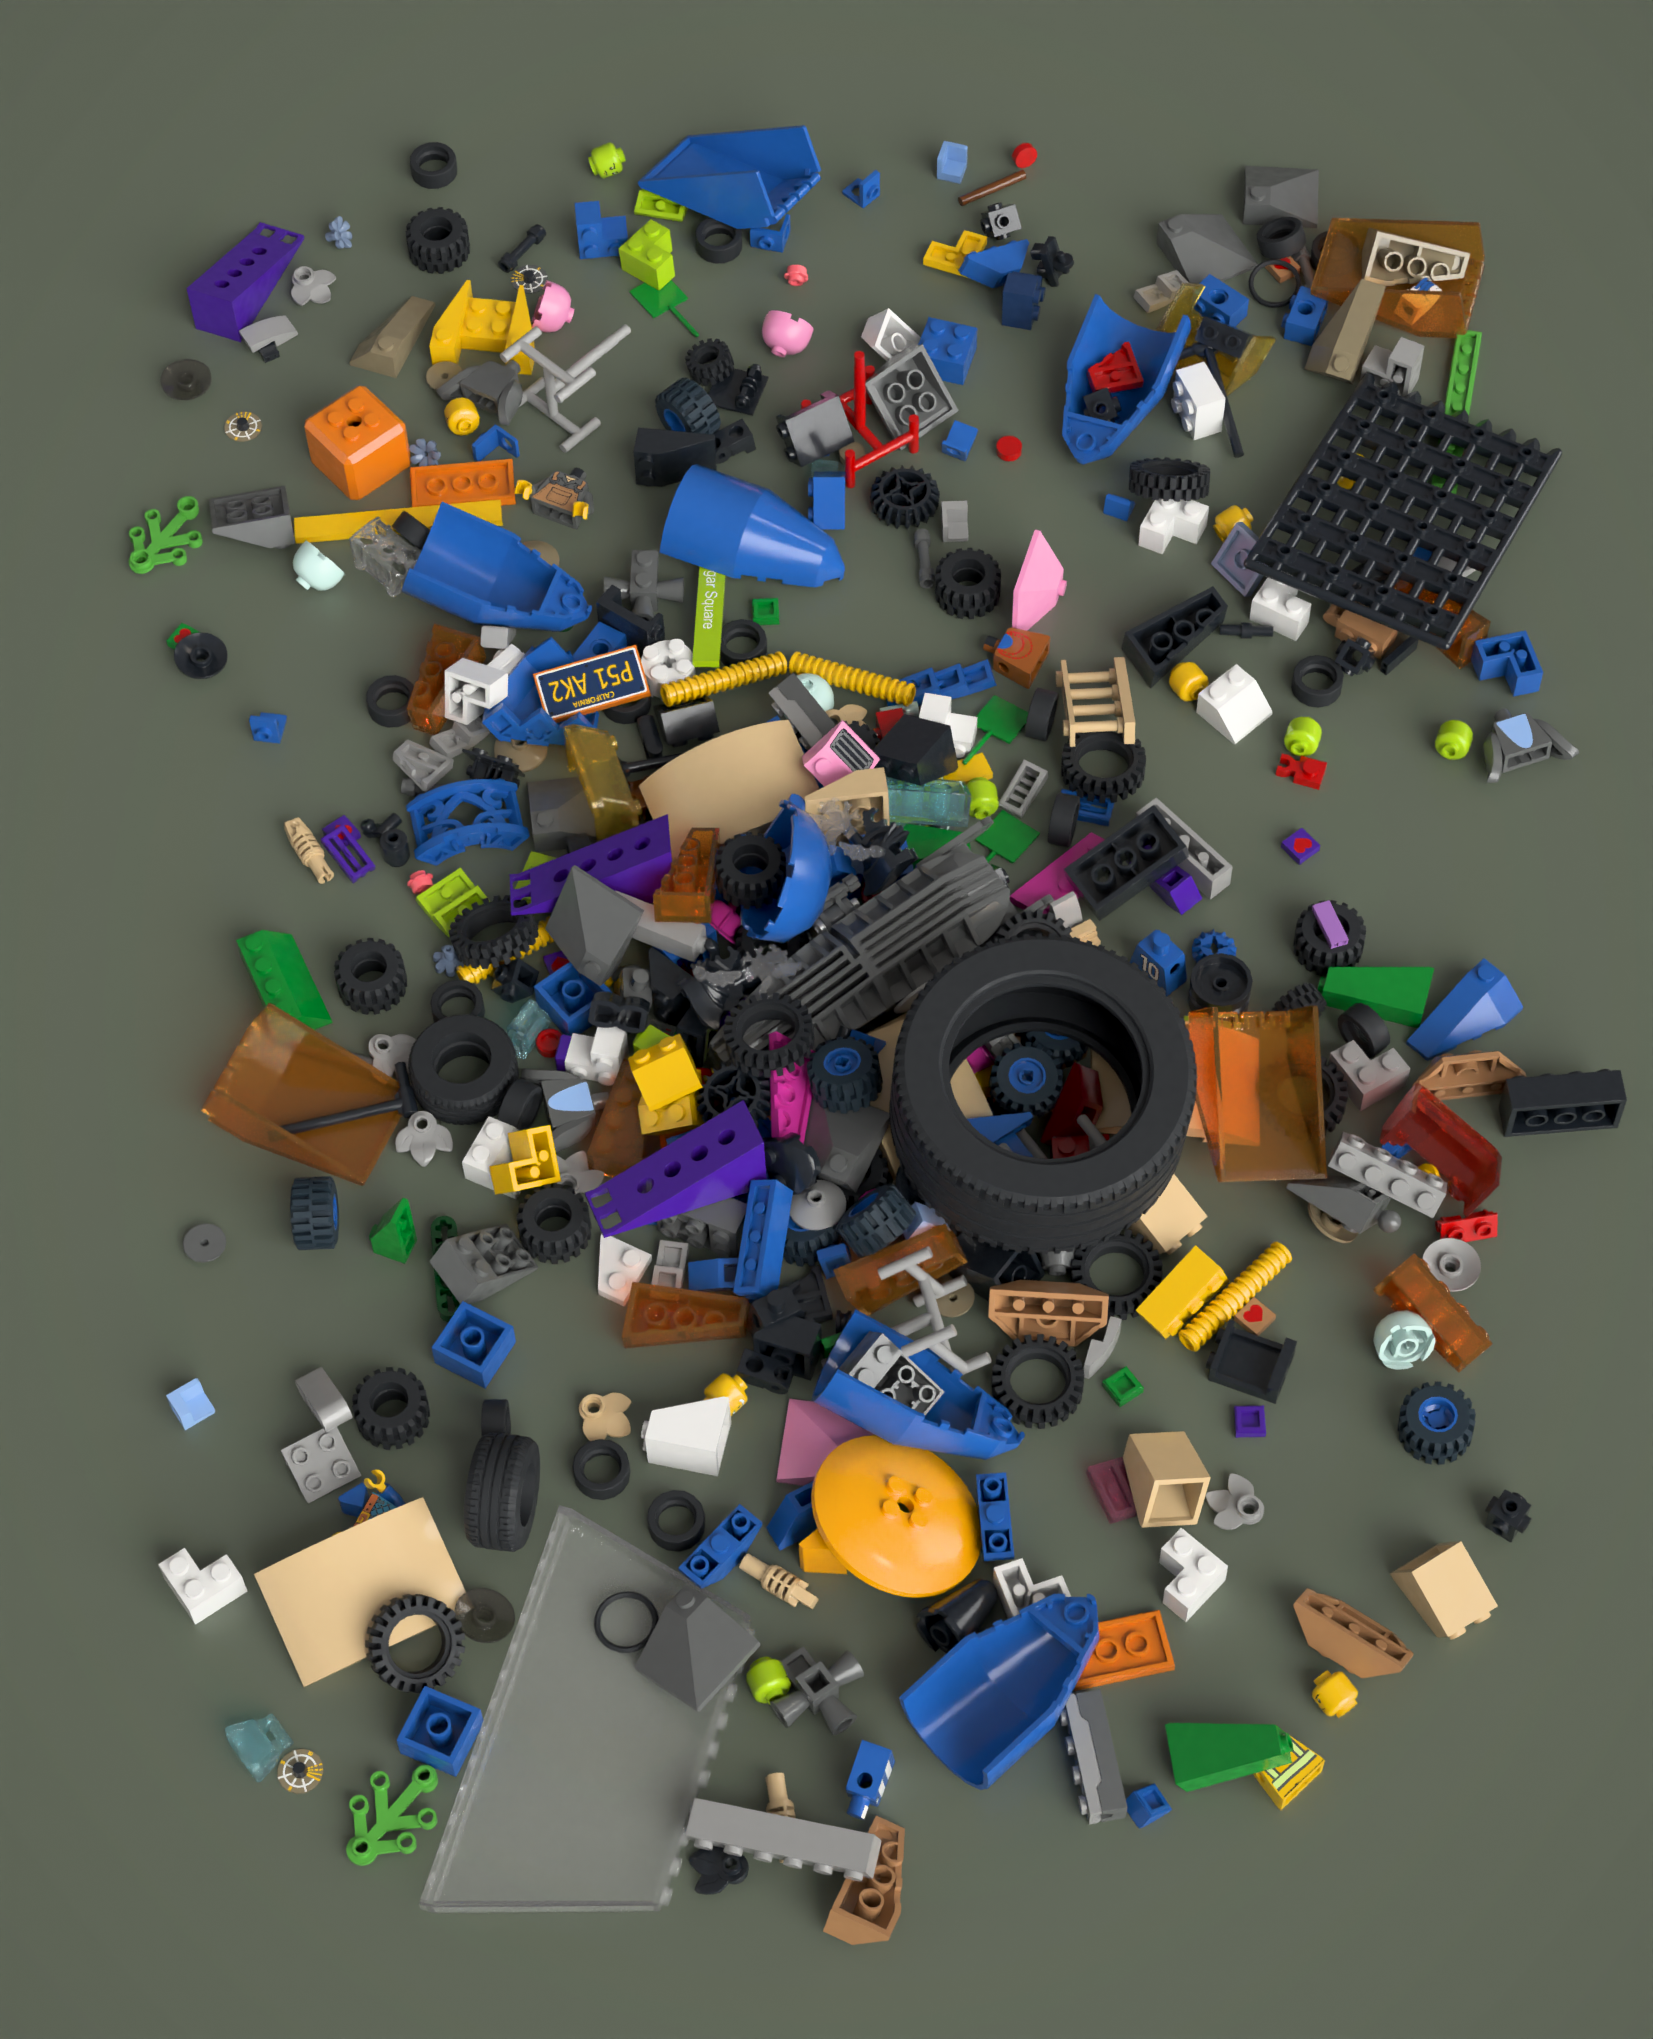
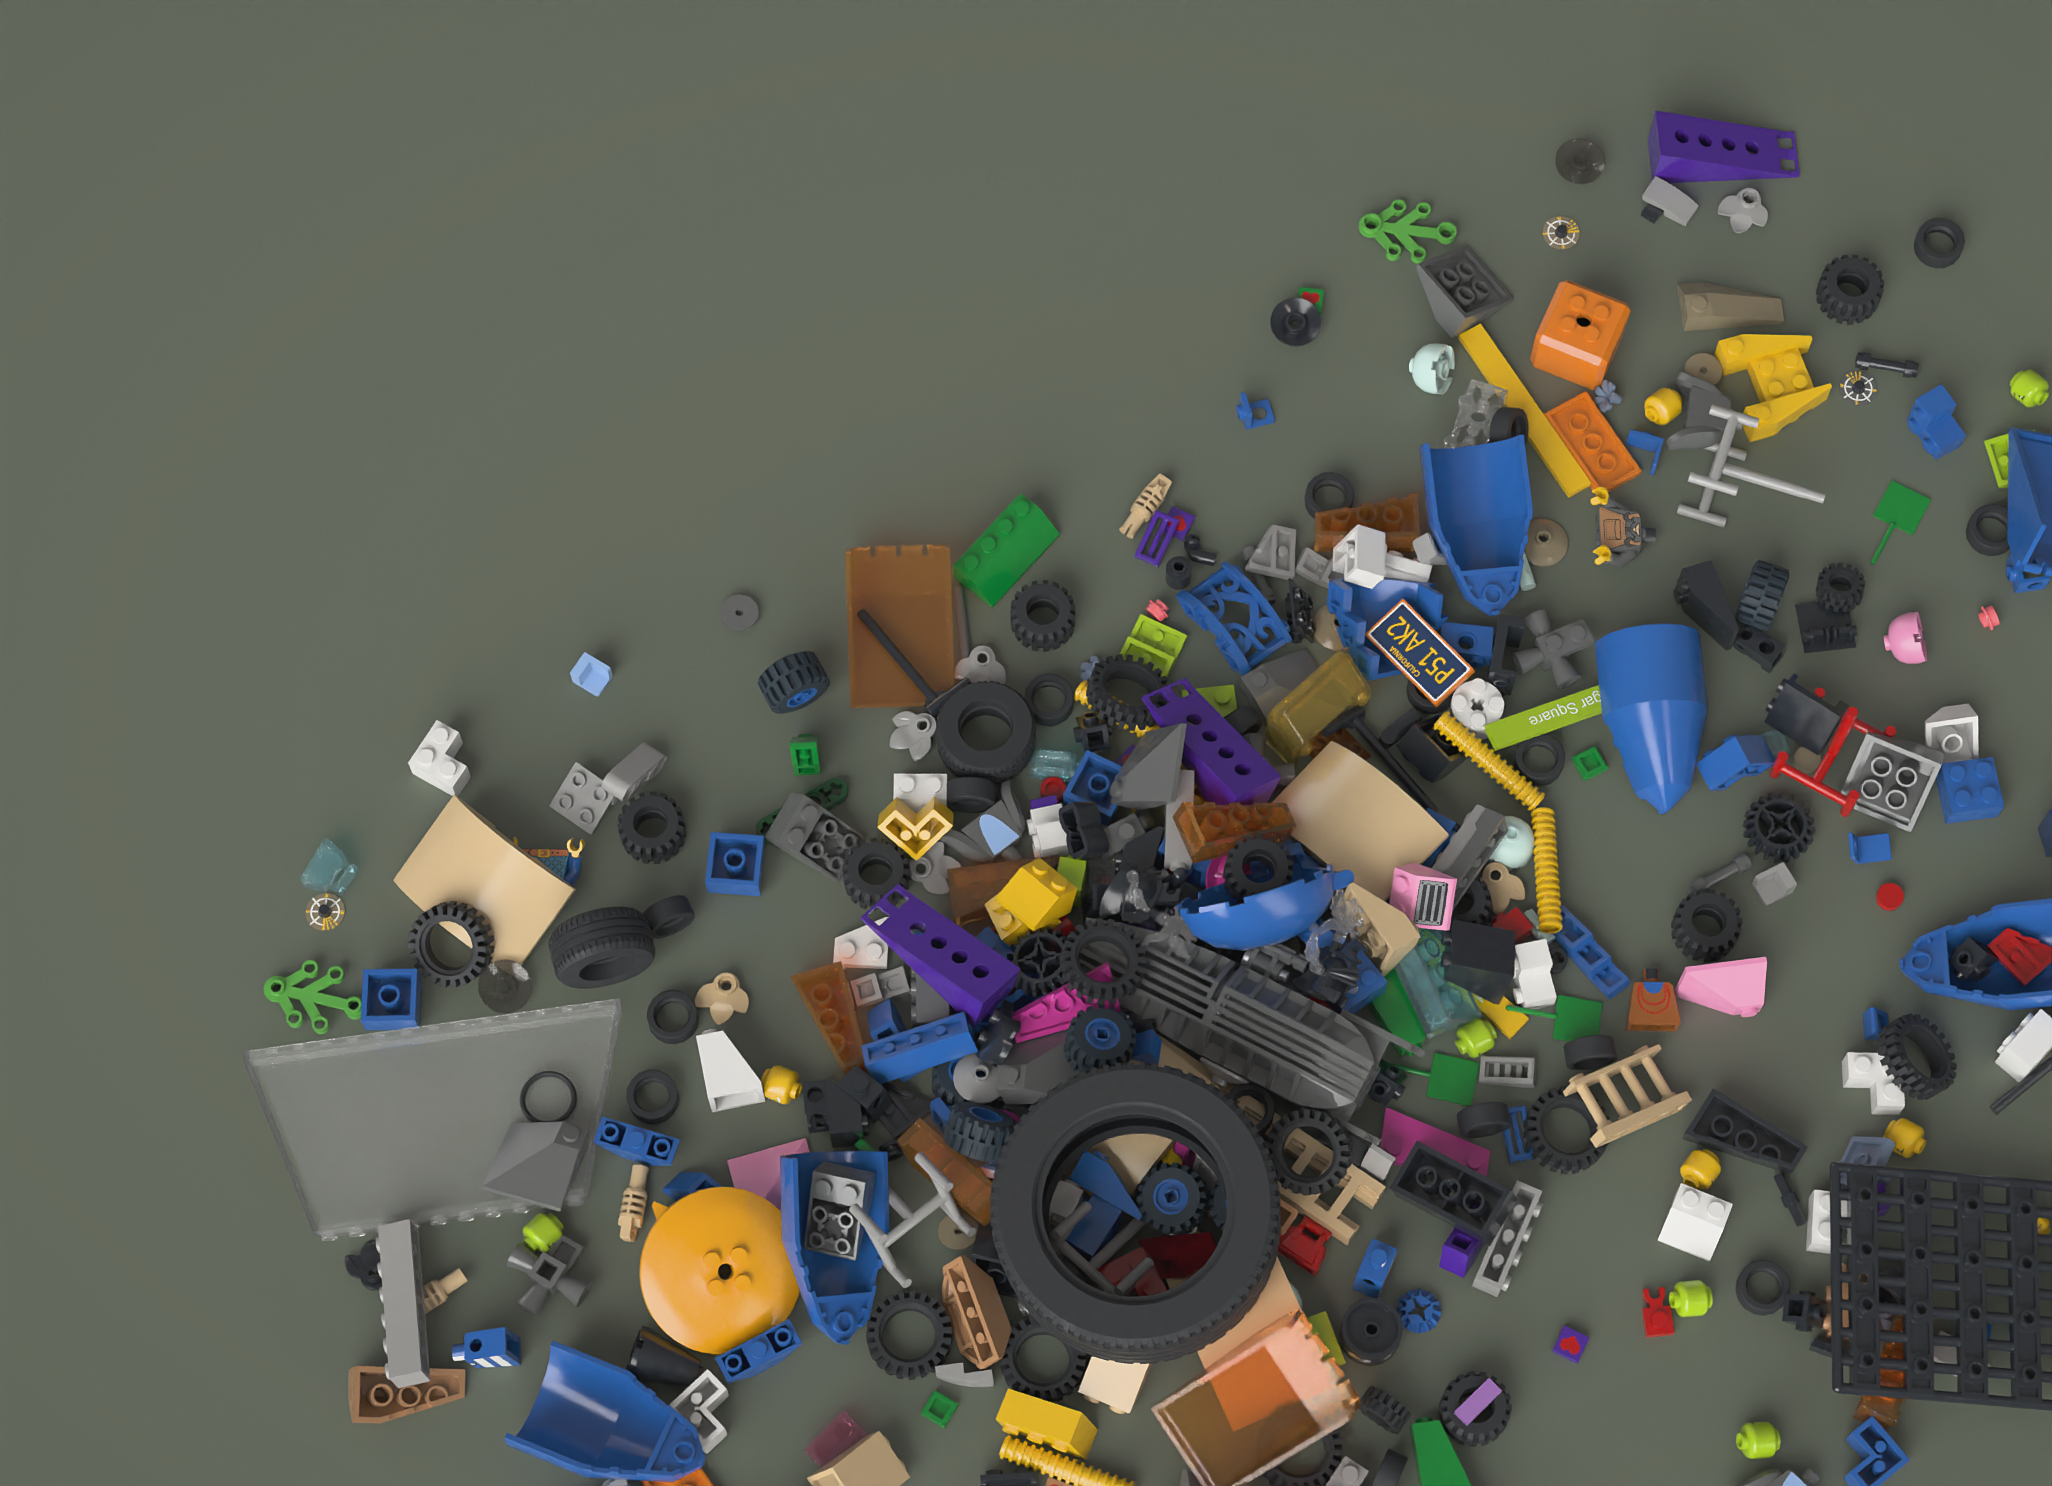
camera: 65 degrees right, 10 degrees up
(339, 233) = (1814, 203): sand blue plant -> none
(354, 1500) = (560, 838): blue slope -> none
(552, 308) = (1825, 424): bright pink cylinder -> none
(648, 255) = (1935, 473): lime brick -> none

